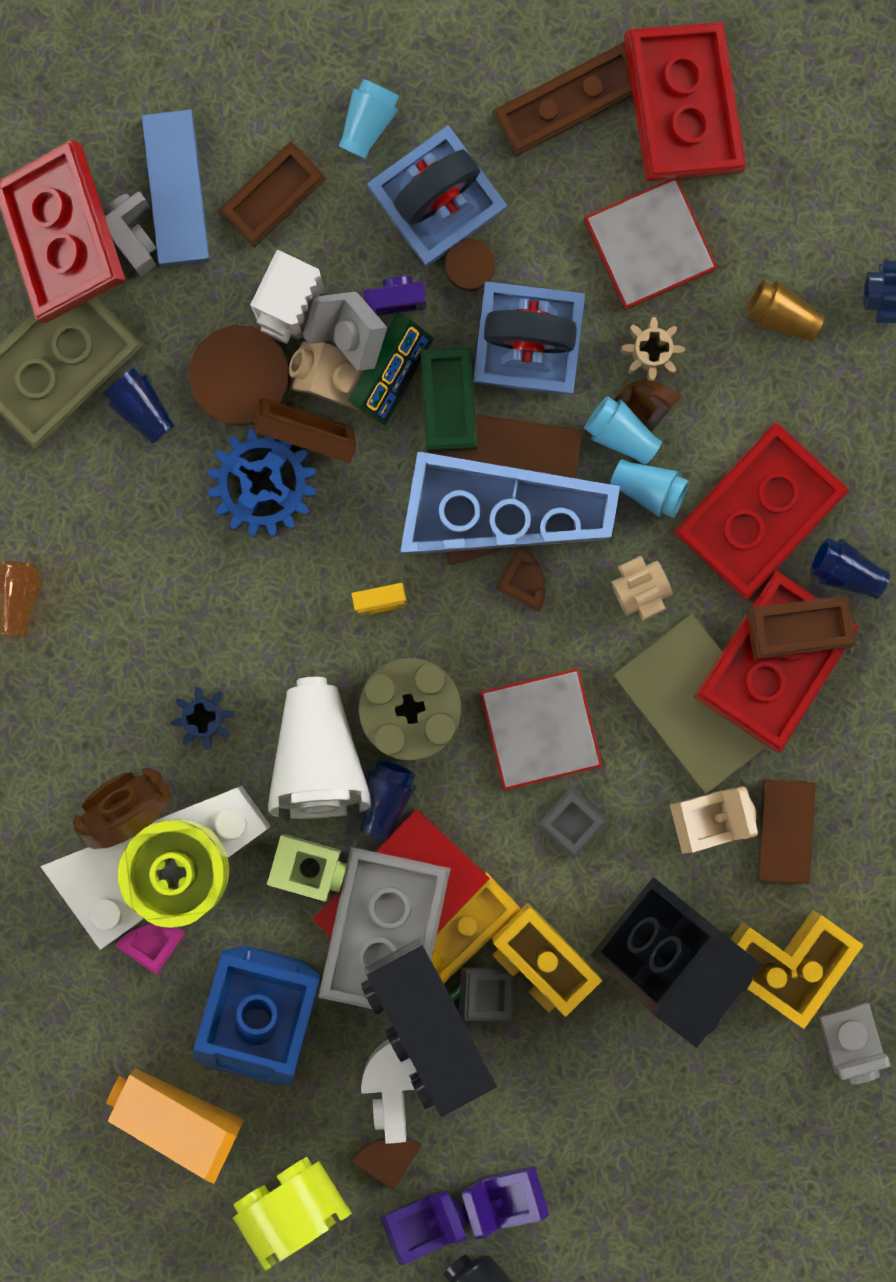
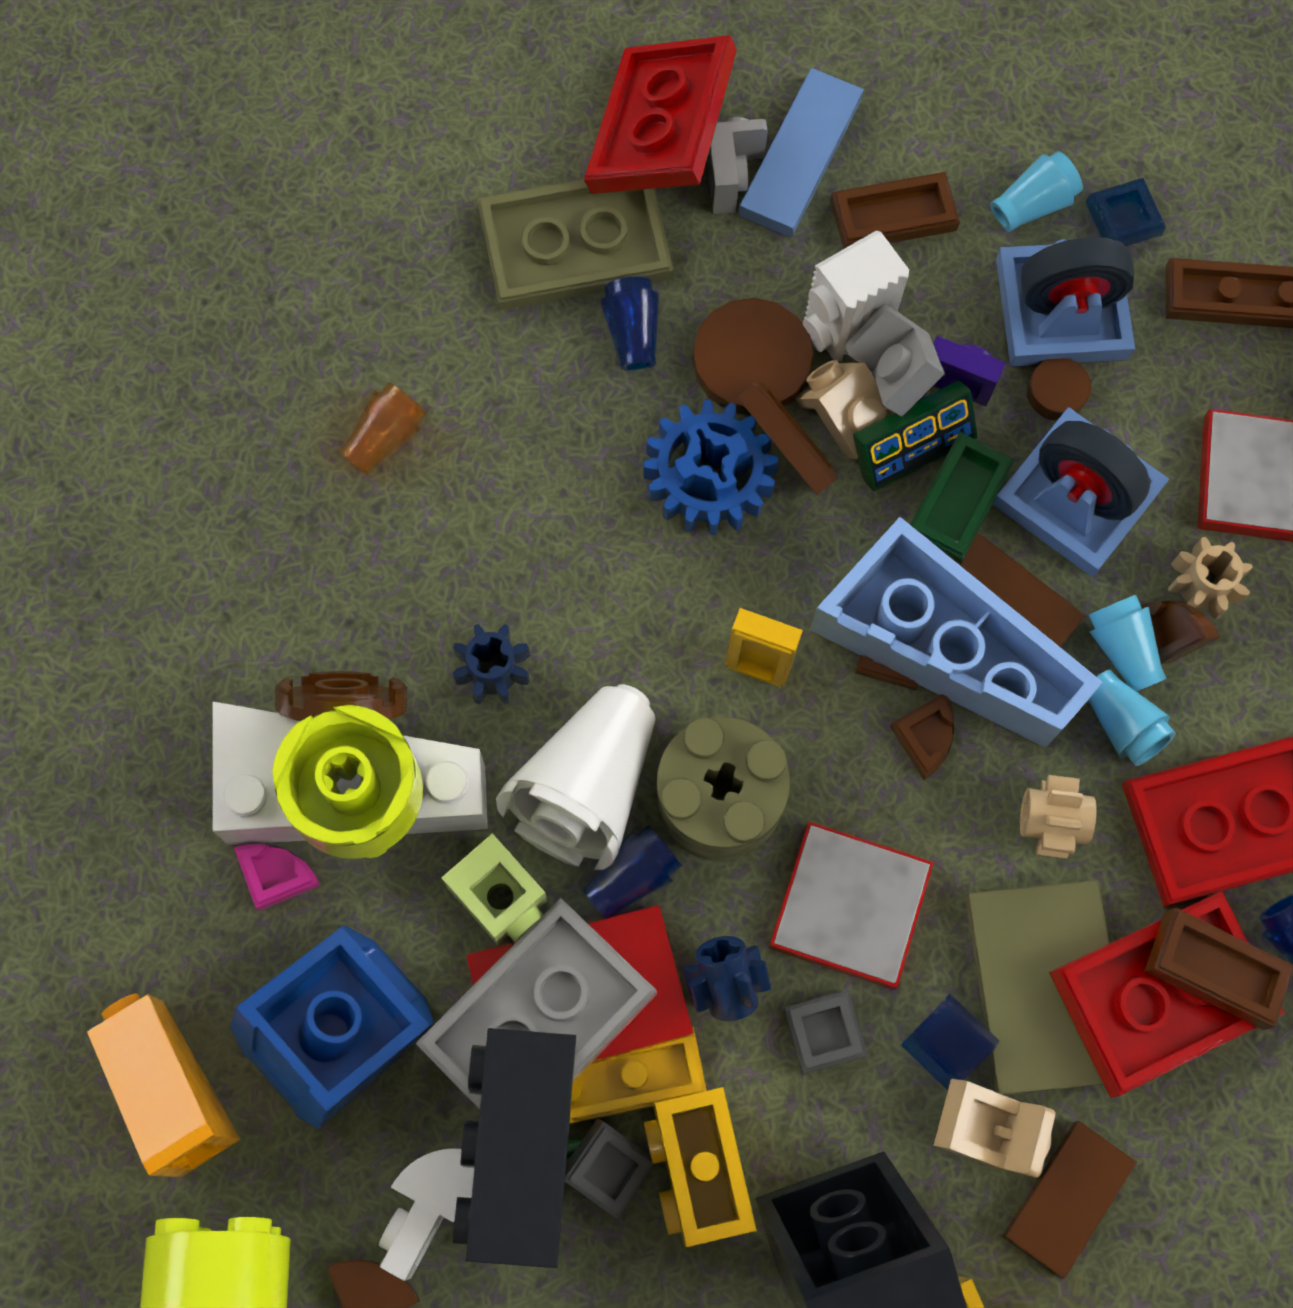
camera: 30 degrees right, 15 degrees down
(440, 91) = (1126, 213): none -> clear blue tile
(489, 830) = (727, 978): none -> dark blue gear
(655, 780) = (950, 1042): none -> clear blue tile

